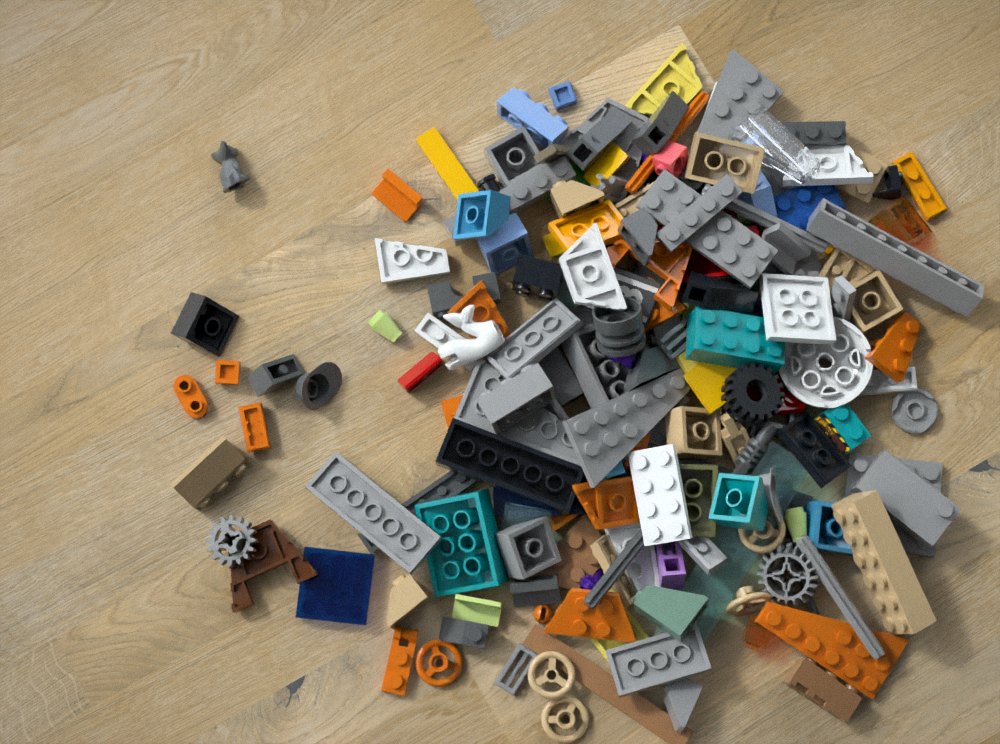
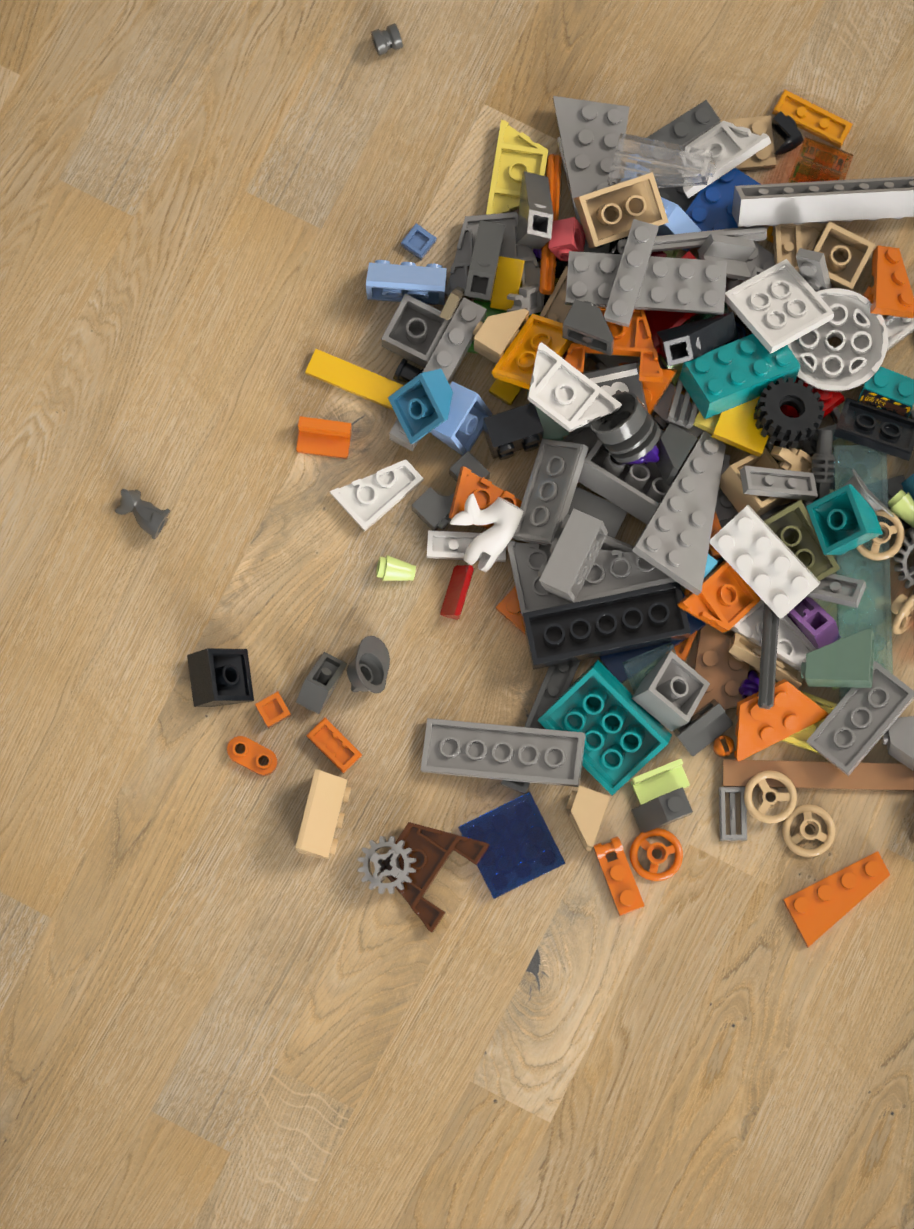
camera: 35 degrees left, 0 degrees up
(709, 442) = (778, 483): none -> light grey plate

